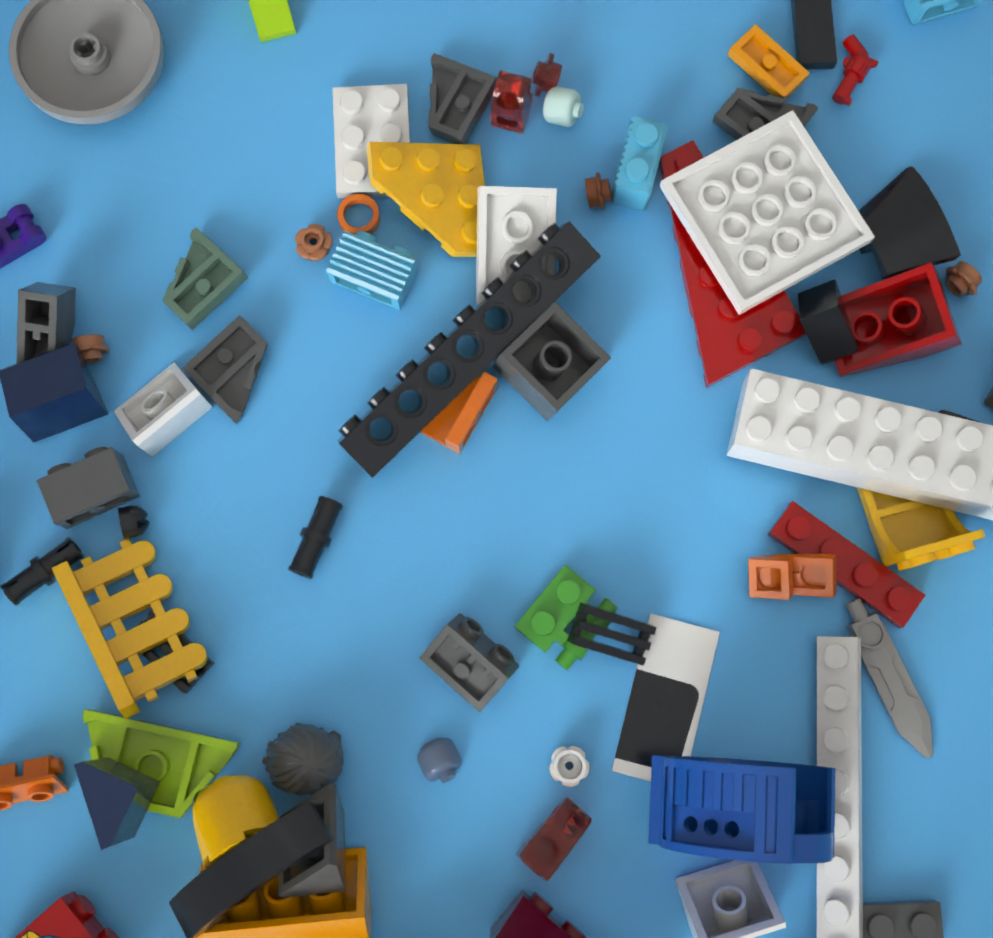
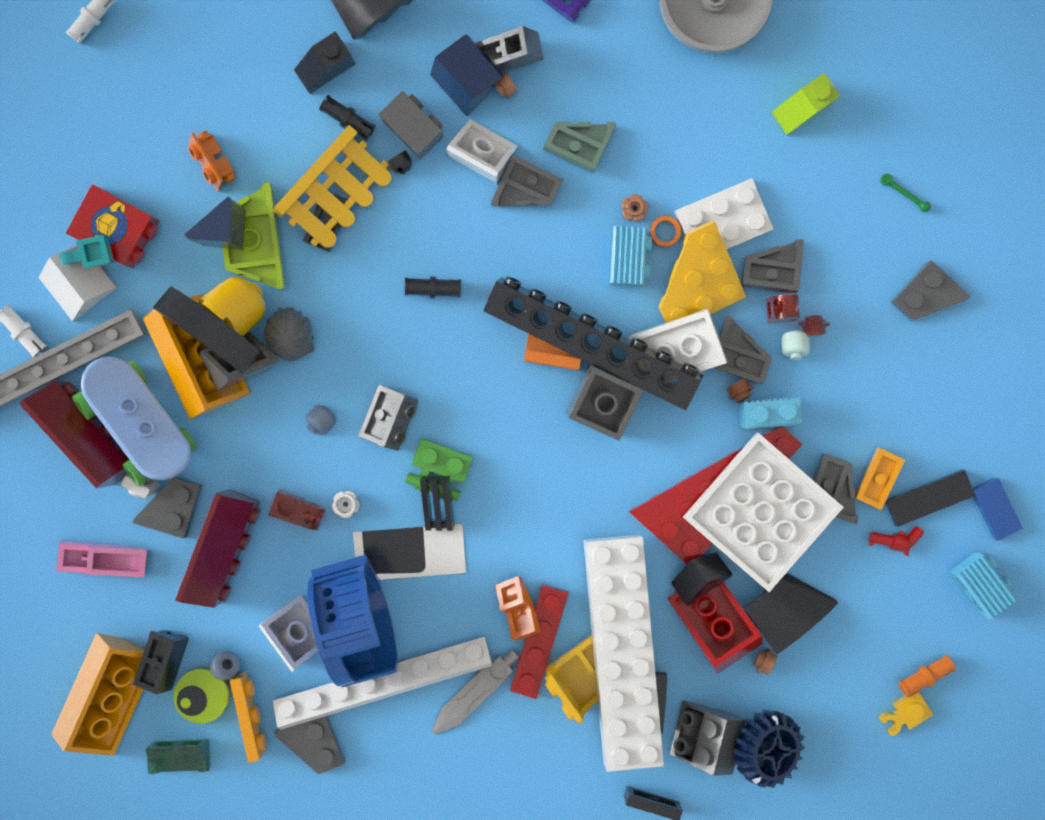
camera: 70 degrees right, 10 degrees up
(560, 167) = (743, 355): none -> dark grey wing

